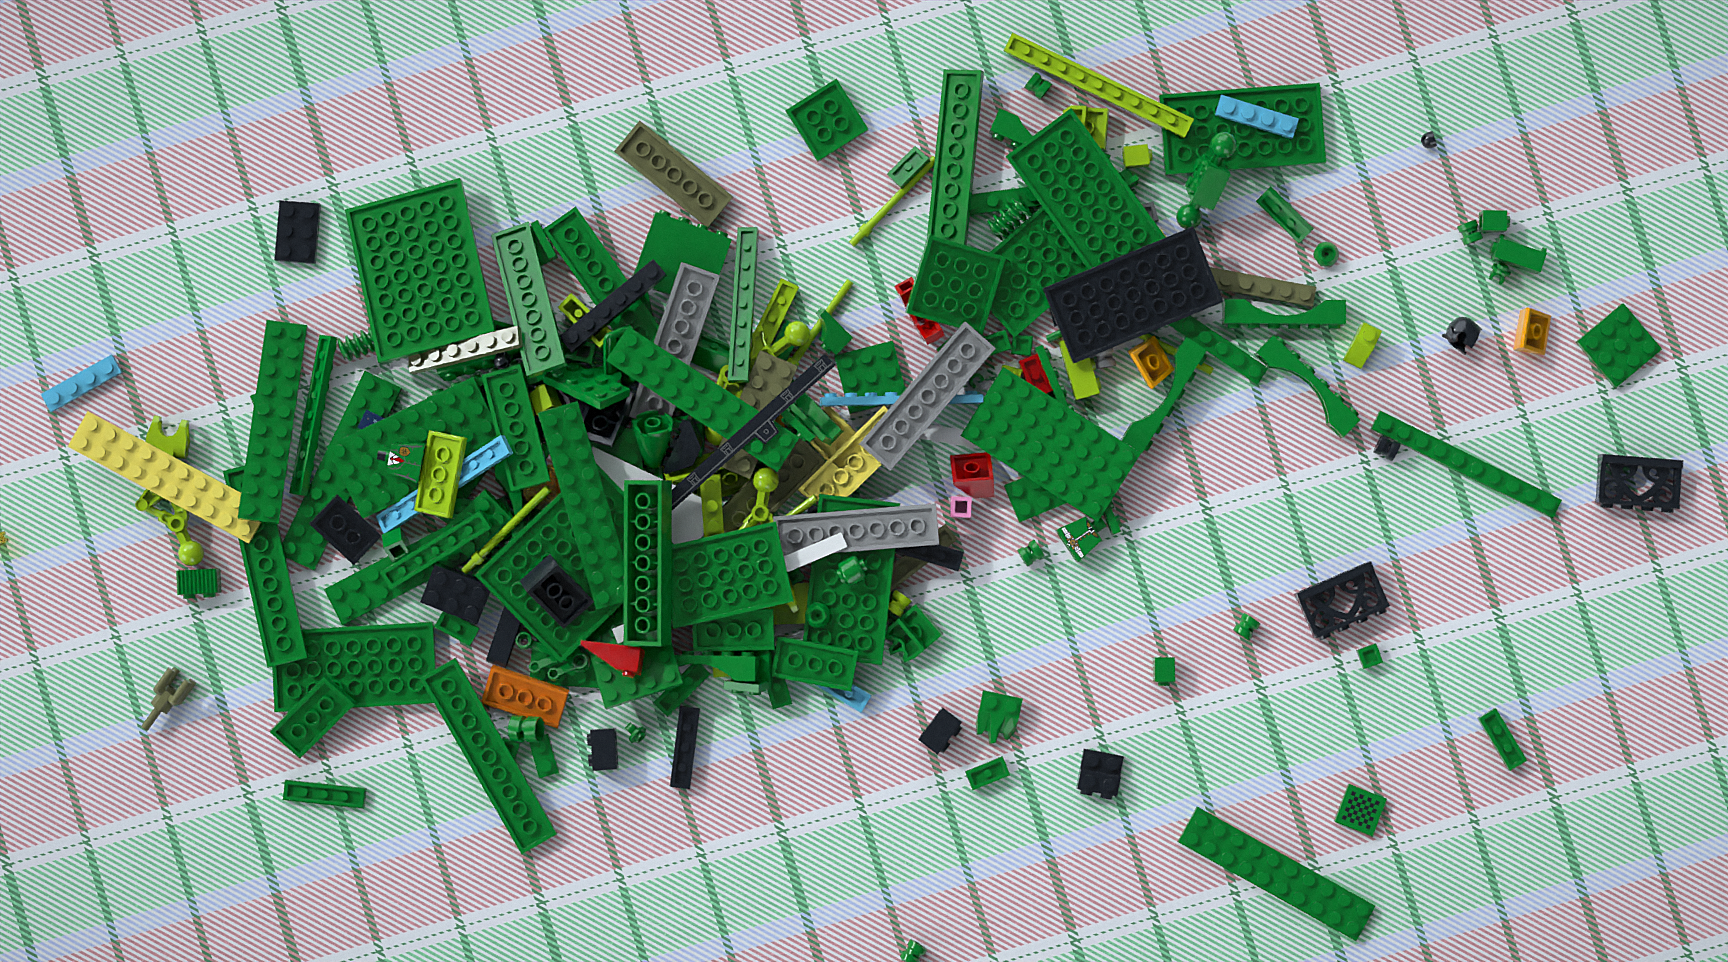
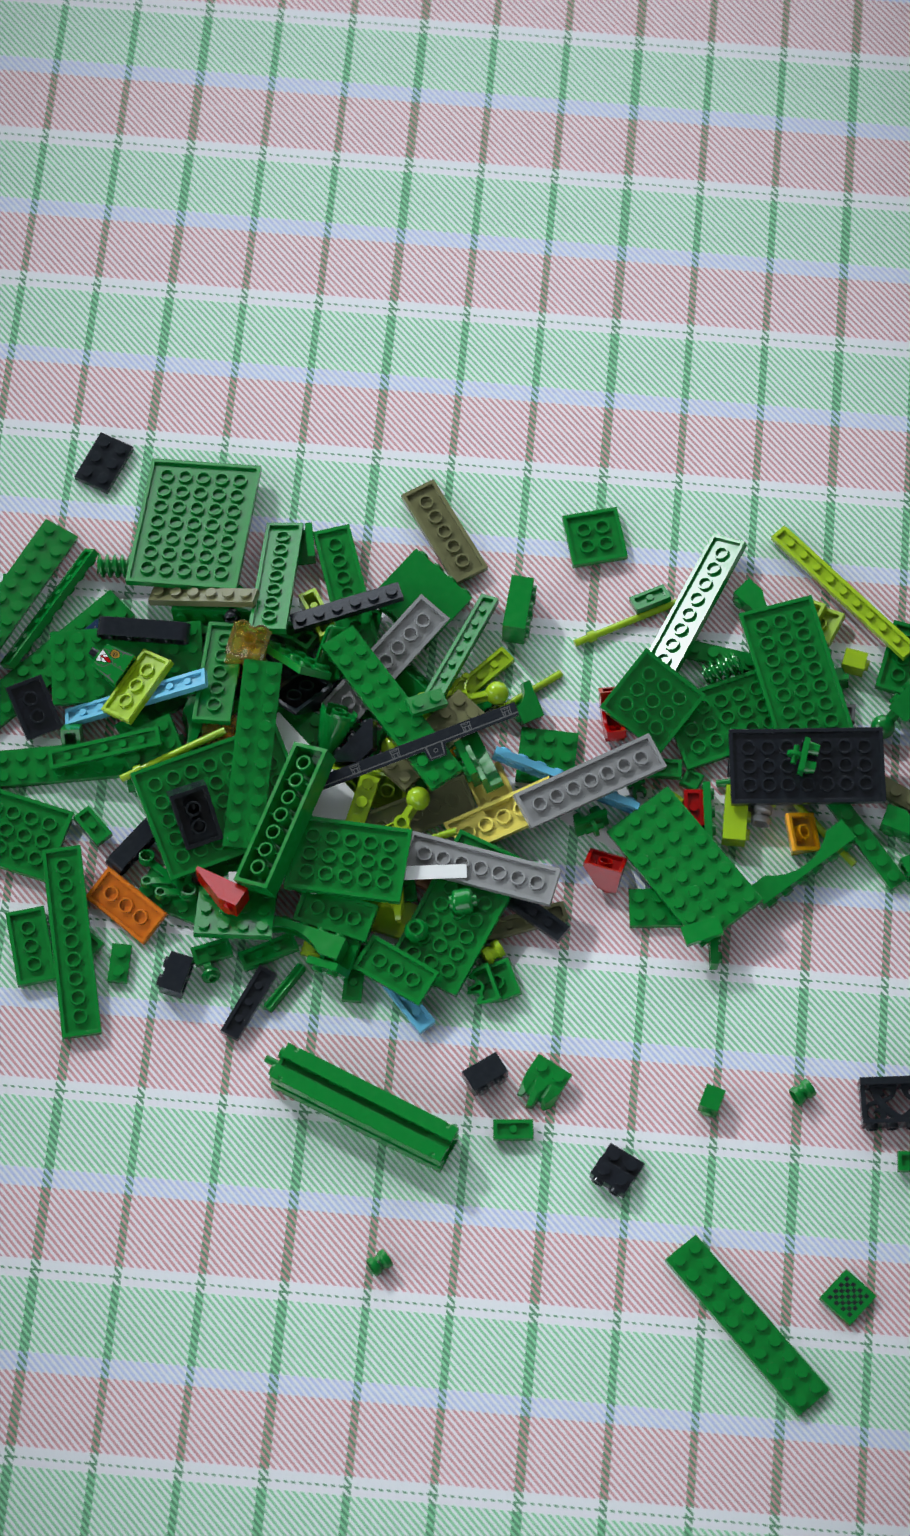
camera: 25 degrees right, 20 degrees down
(421, 412) = (143, 630): none -> black beam
(450, 774) = (31, 946): none -> green plate
(455, 593) = (106, 793): black brick -> none
(523, 728) = (115, 930): green wheel -> none
(533, 392) = (247, 642): none -> clear yellow piece
(627, 712) = (212, 952): none -> green plate
(712, 717) = (284, 987): none -> green axle
(736, 383) = (426, 702): none -> green plate
(784, 233) = (519, 609): none -> green brick
(836, 811) = (362, 1106): none -> green brick
(943, 432) = (590, 823): none -> green hips
(960, 507) = (582, 890): bright pink brick -> none
(1027, 556) = (629, 954): green wheel -> none
(1038, 85) = (790, 575): green wheel -> none
(1081, 536) = (679, 958): green torso -> none
(1095, 509) = (702, 931): none -> green tile
(1129, 280) = (809, 748): none -> green hips

